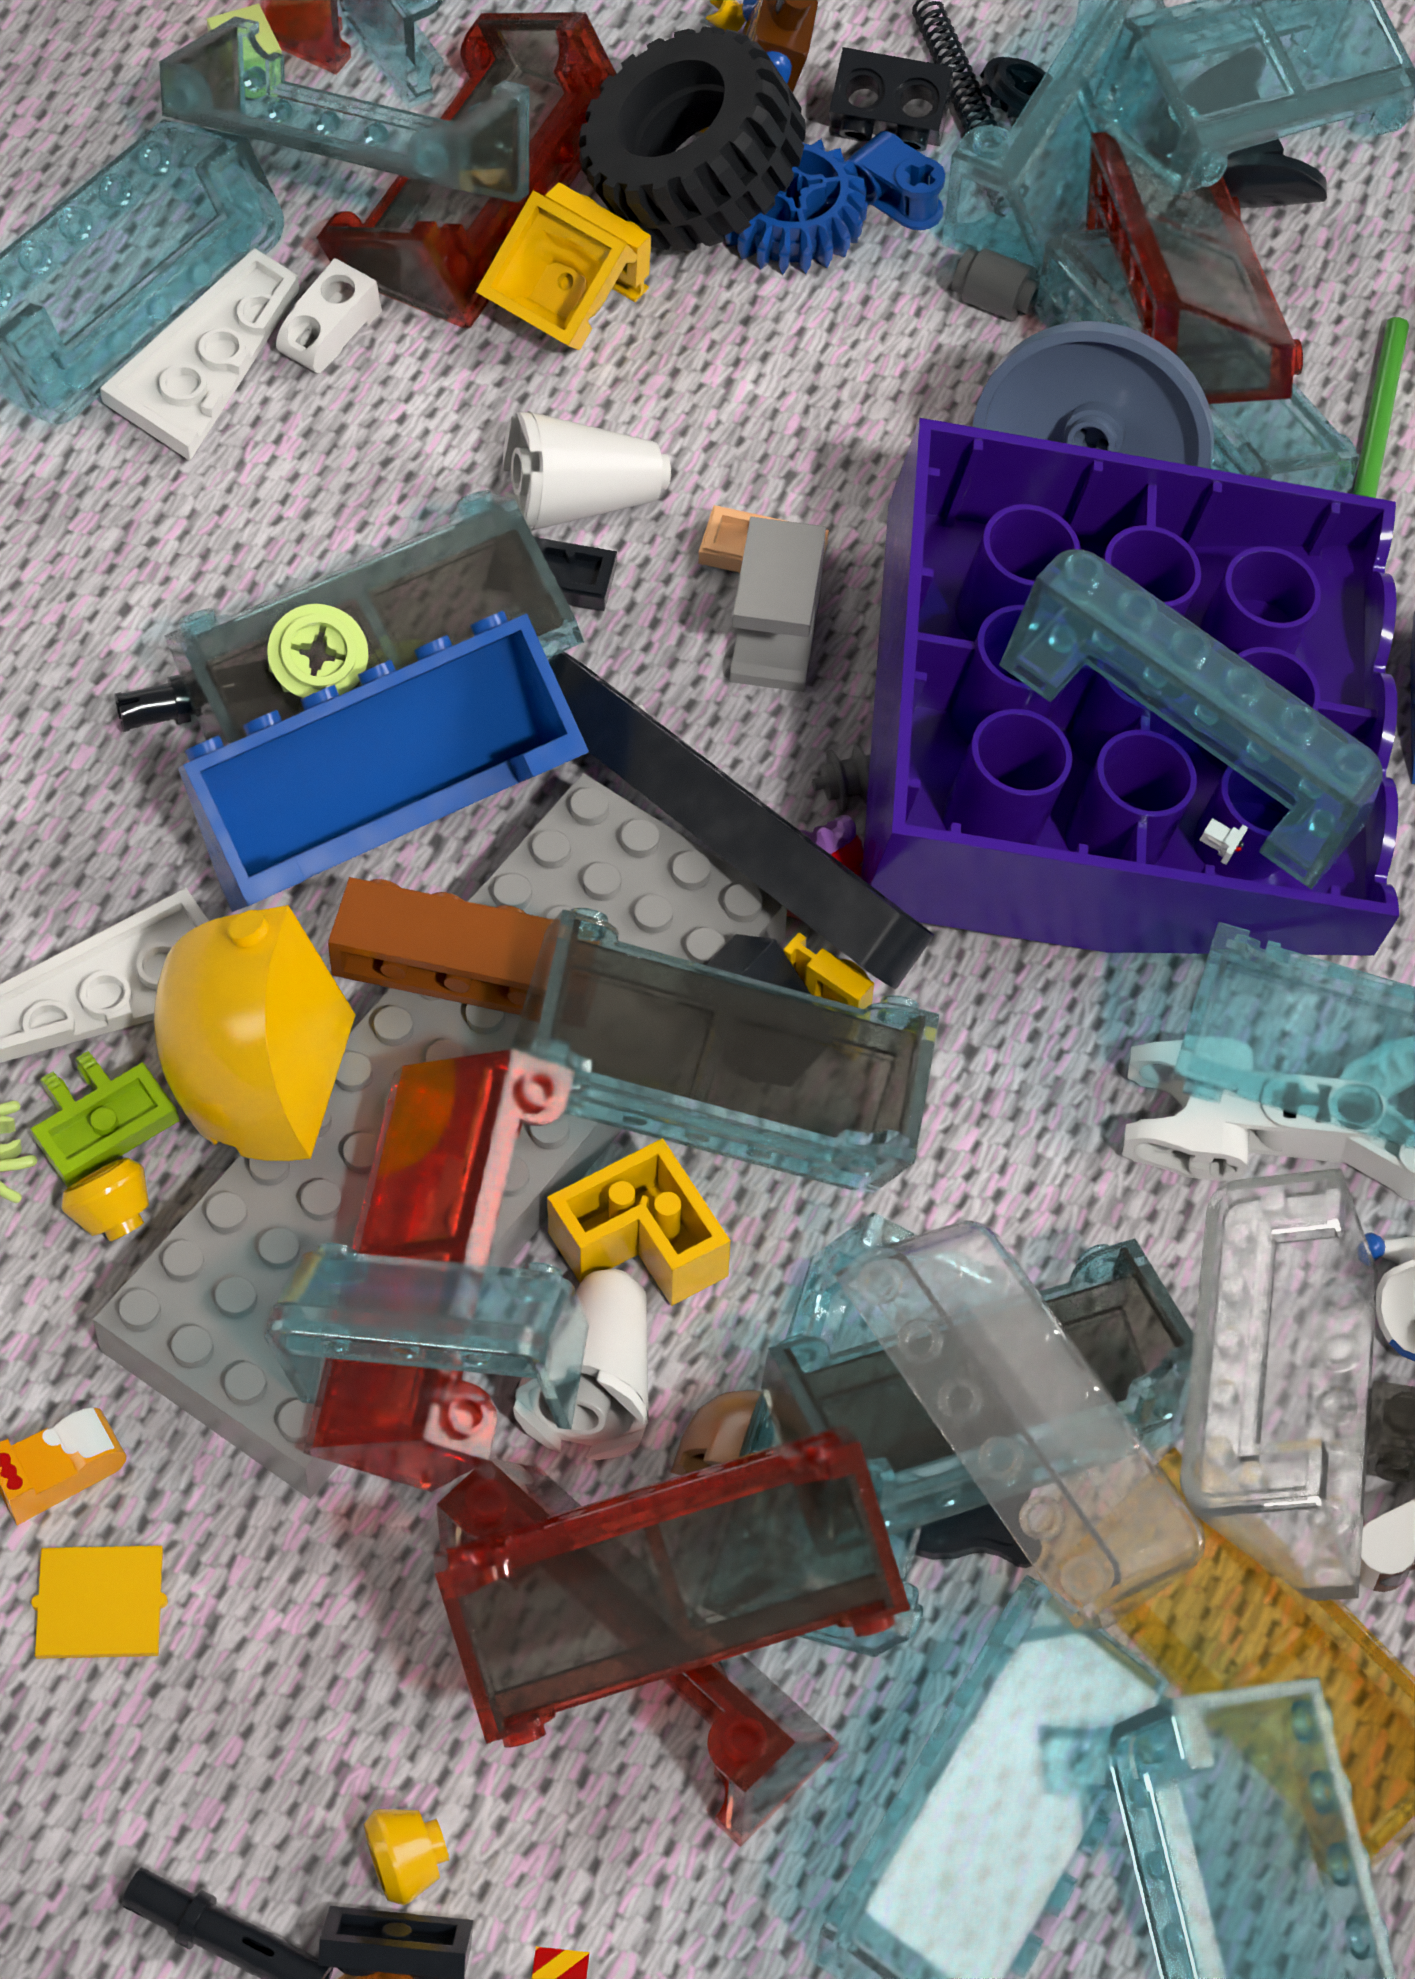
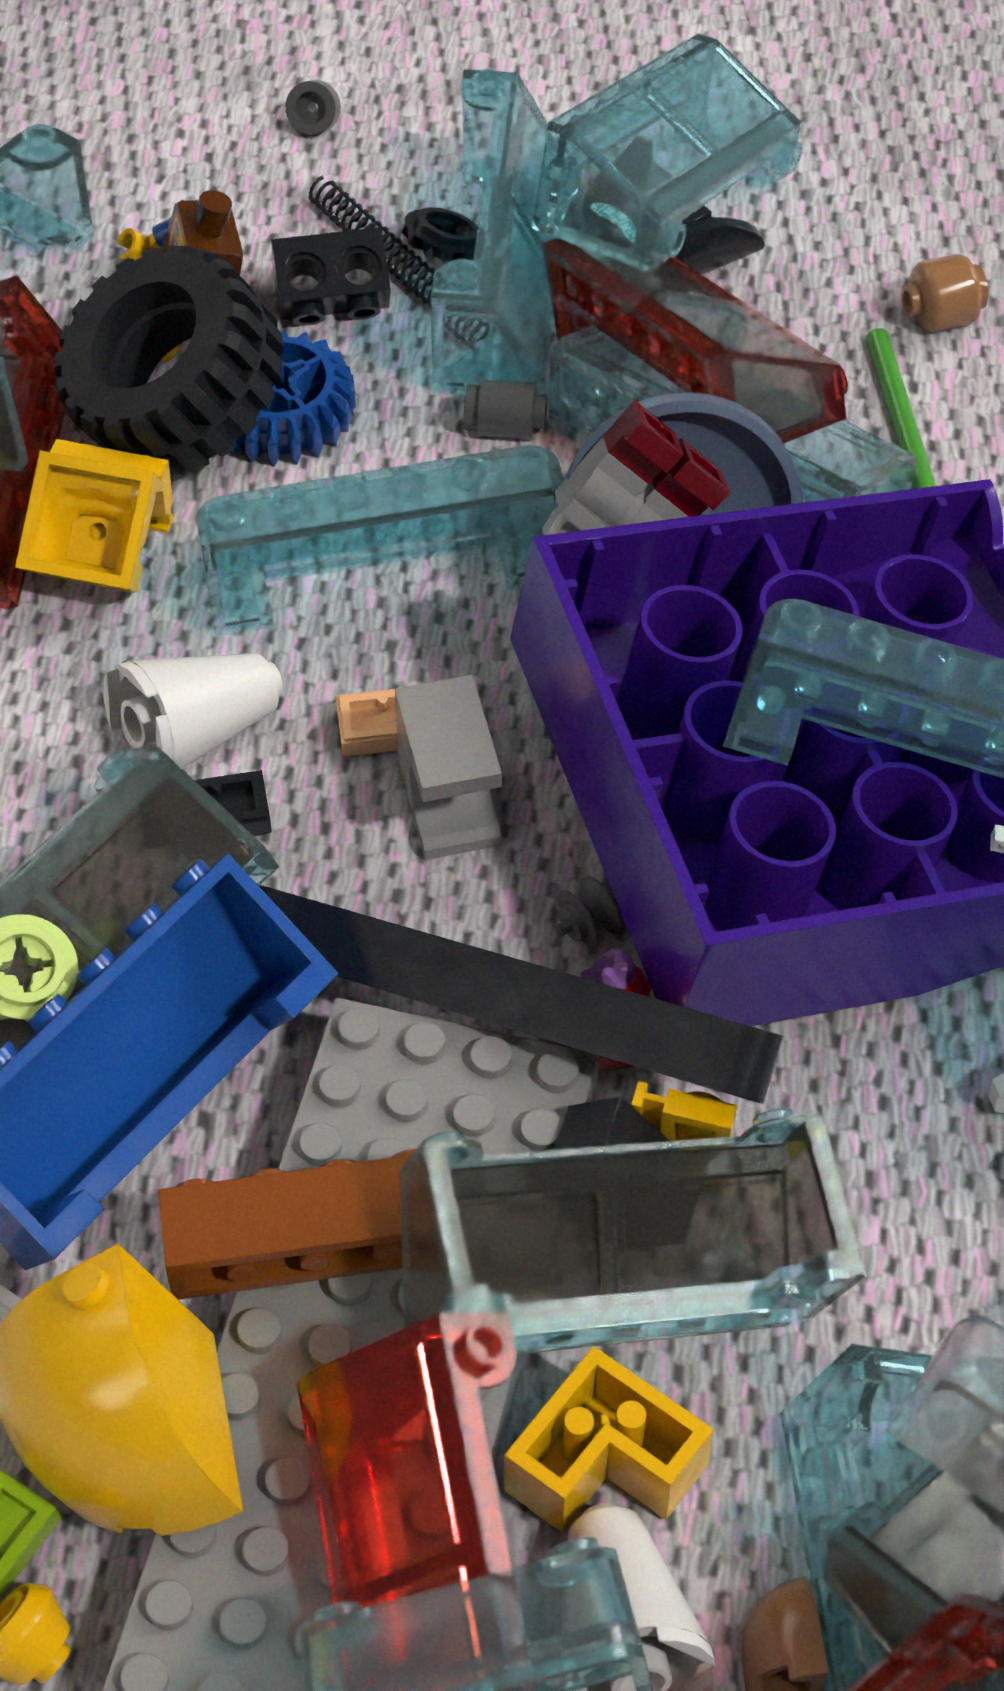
camera: 20 degrees left, 5 degrees down
(801, 350) = (371, 521): none -> clear light blue windscreen
(899, 181) = (371, 341): blue piece -> none
(1050, 394) = (637, 477): none -> hips

